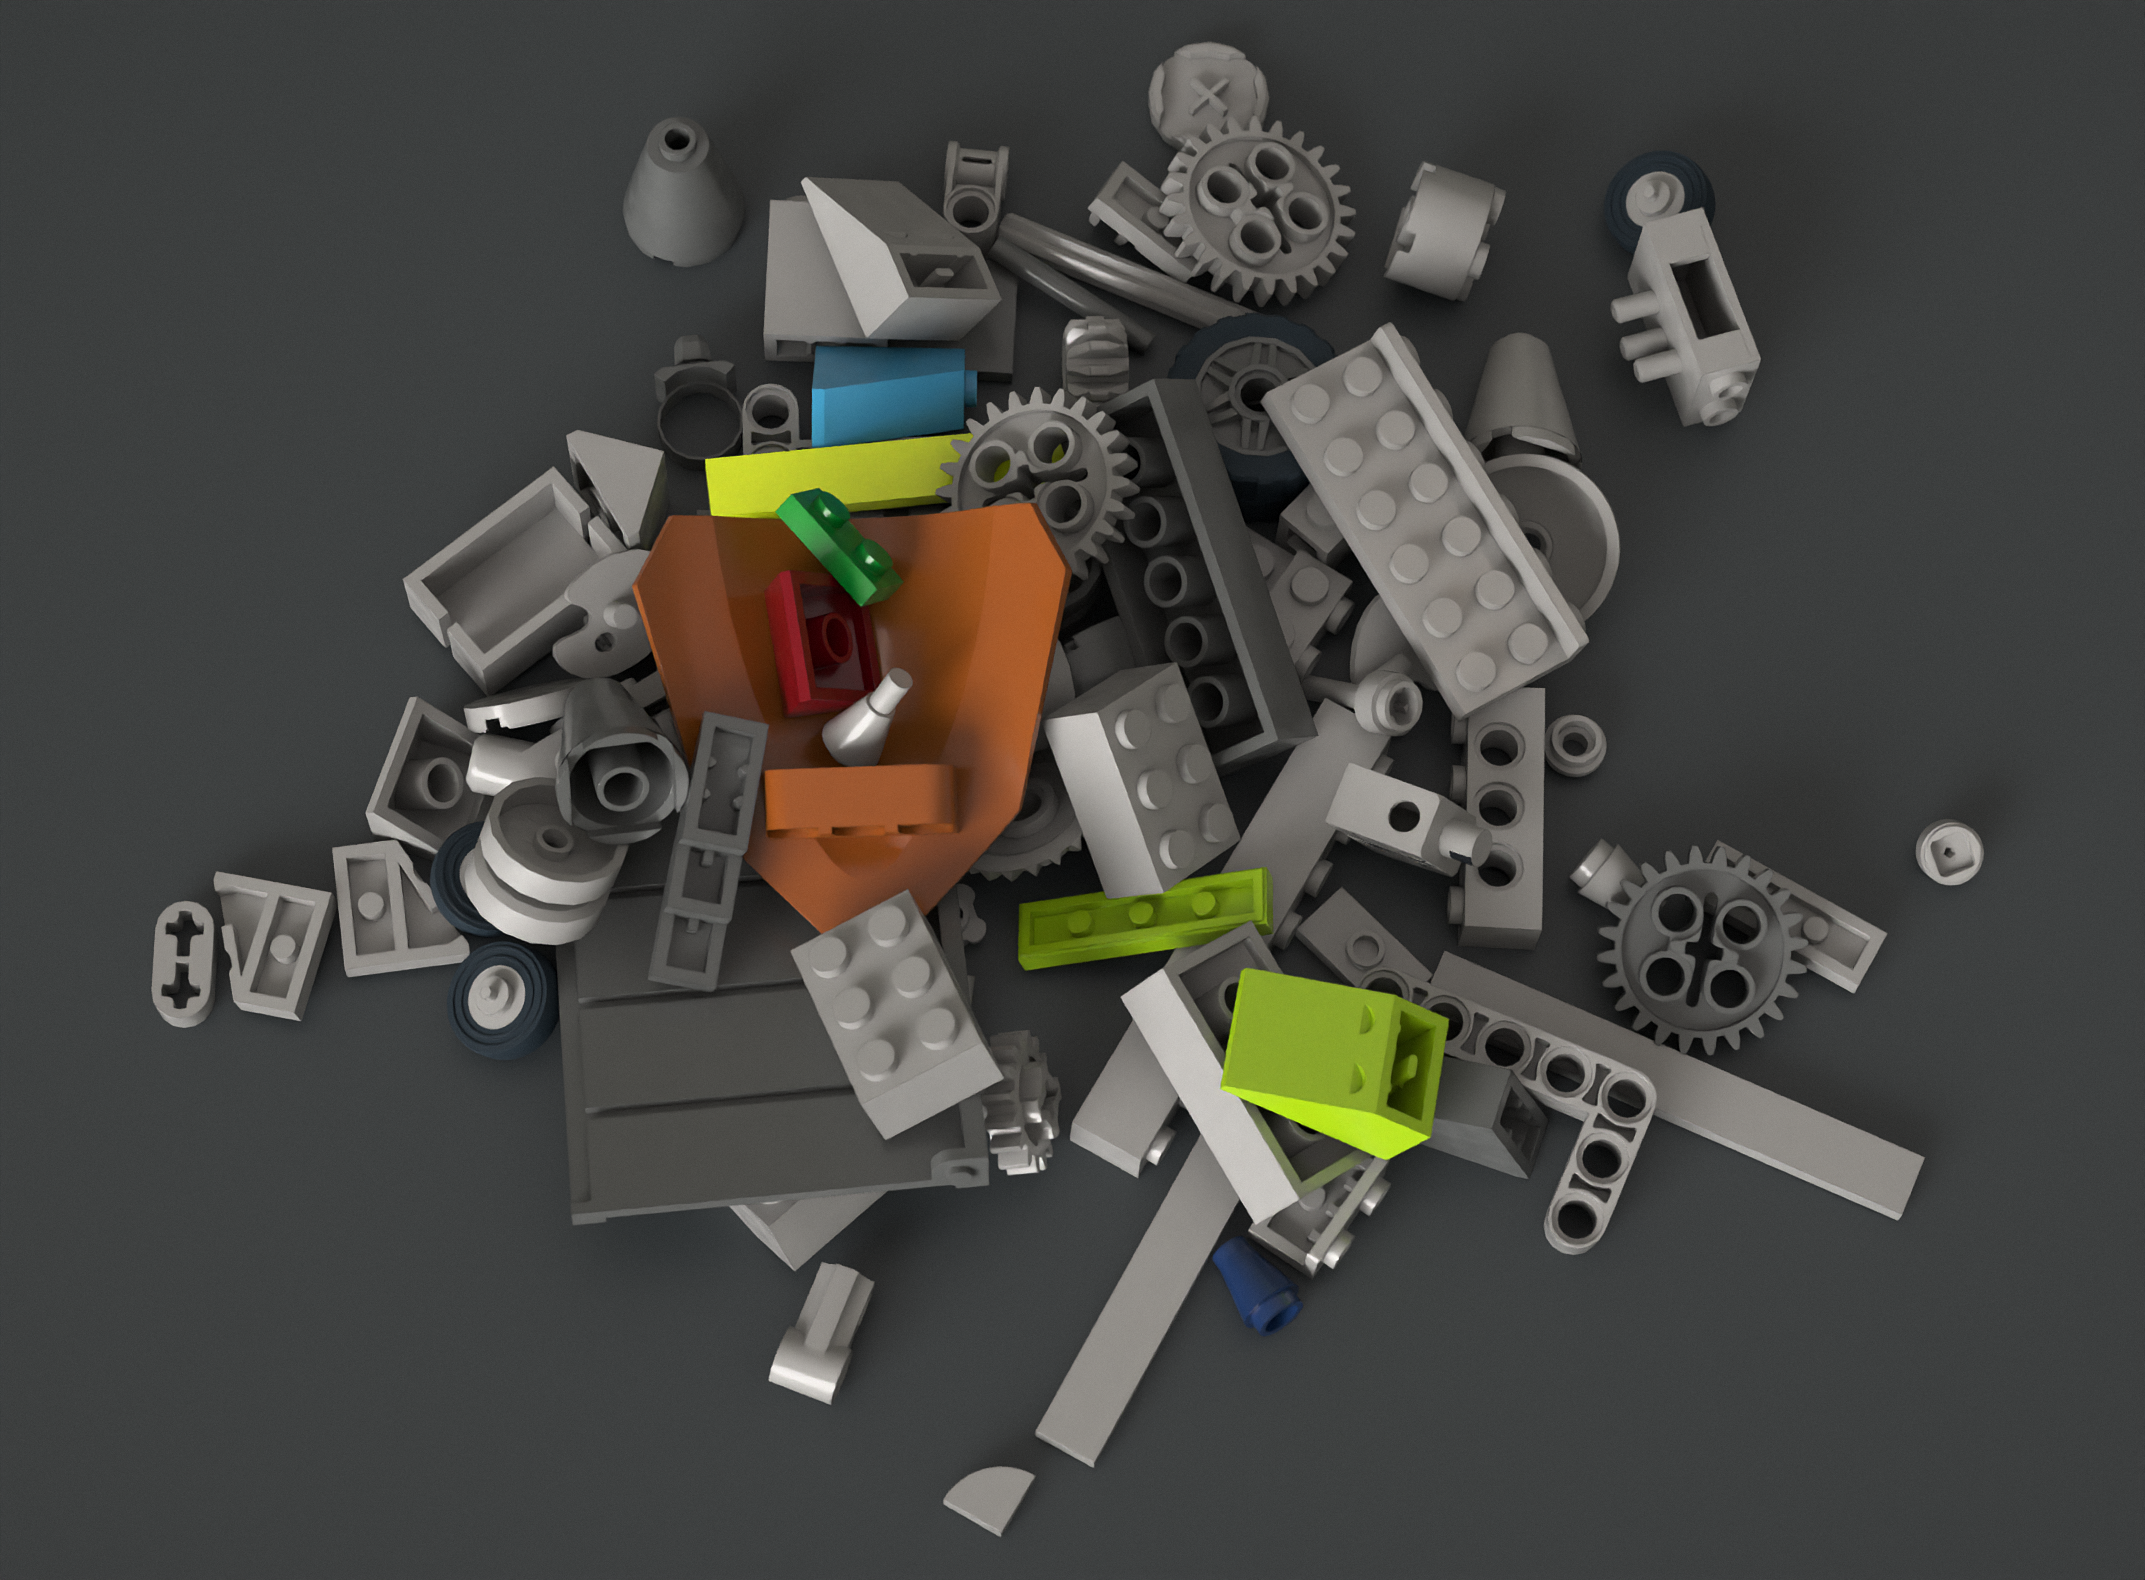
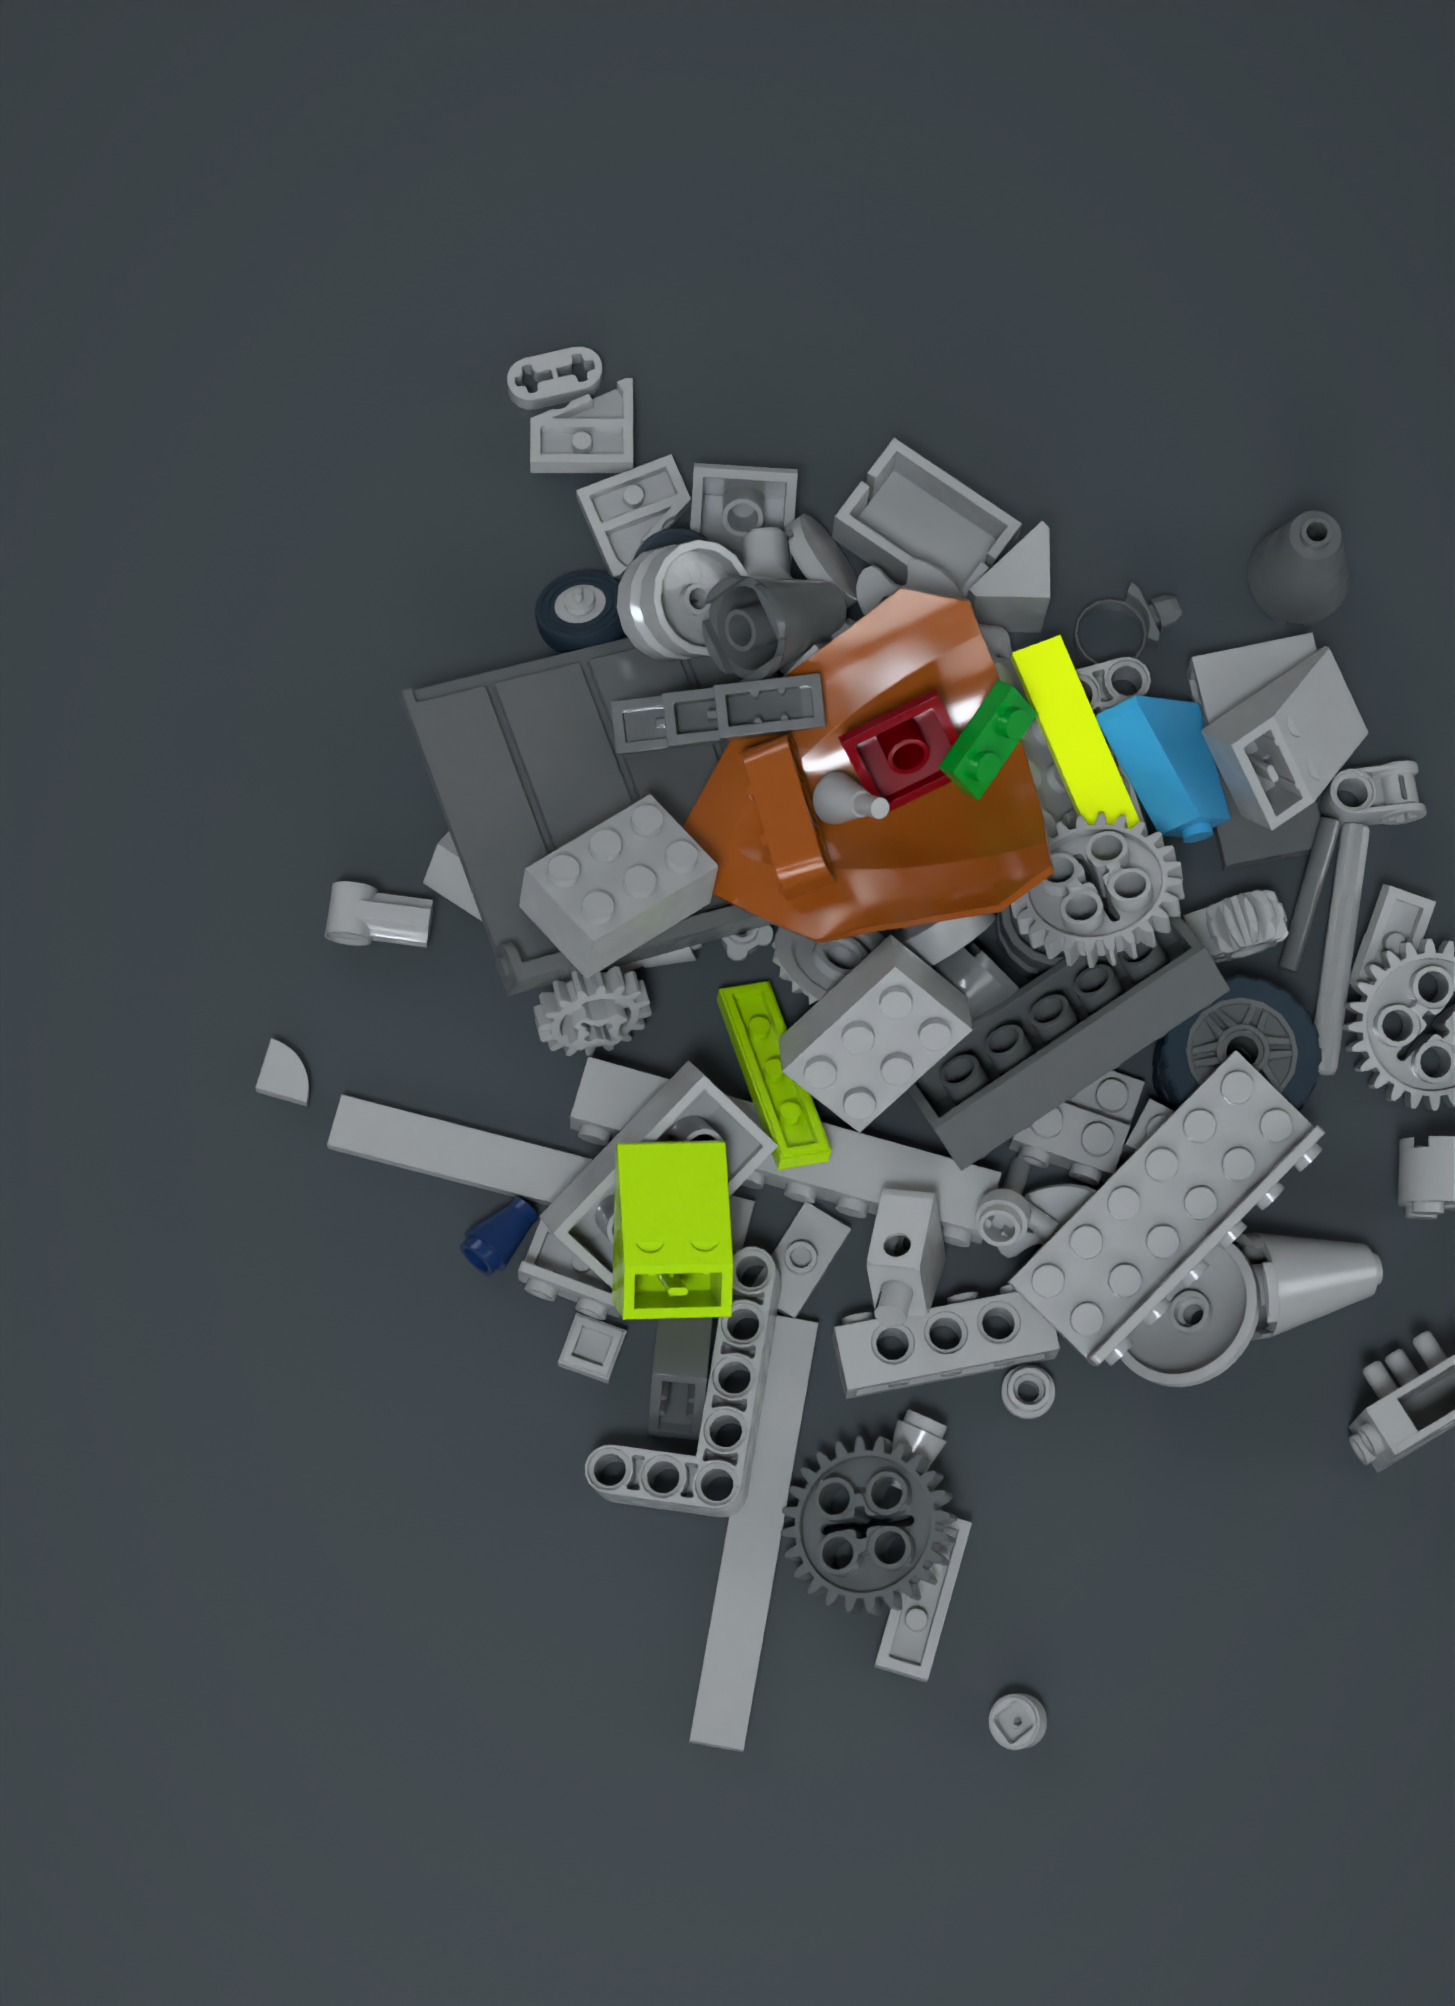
camera: 75 degrees right, 5 degrees up
(1413, 1214) = (592, 1348): none -> light grey tile

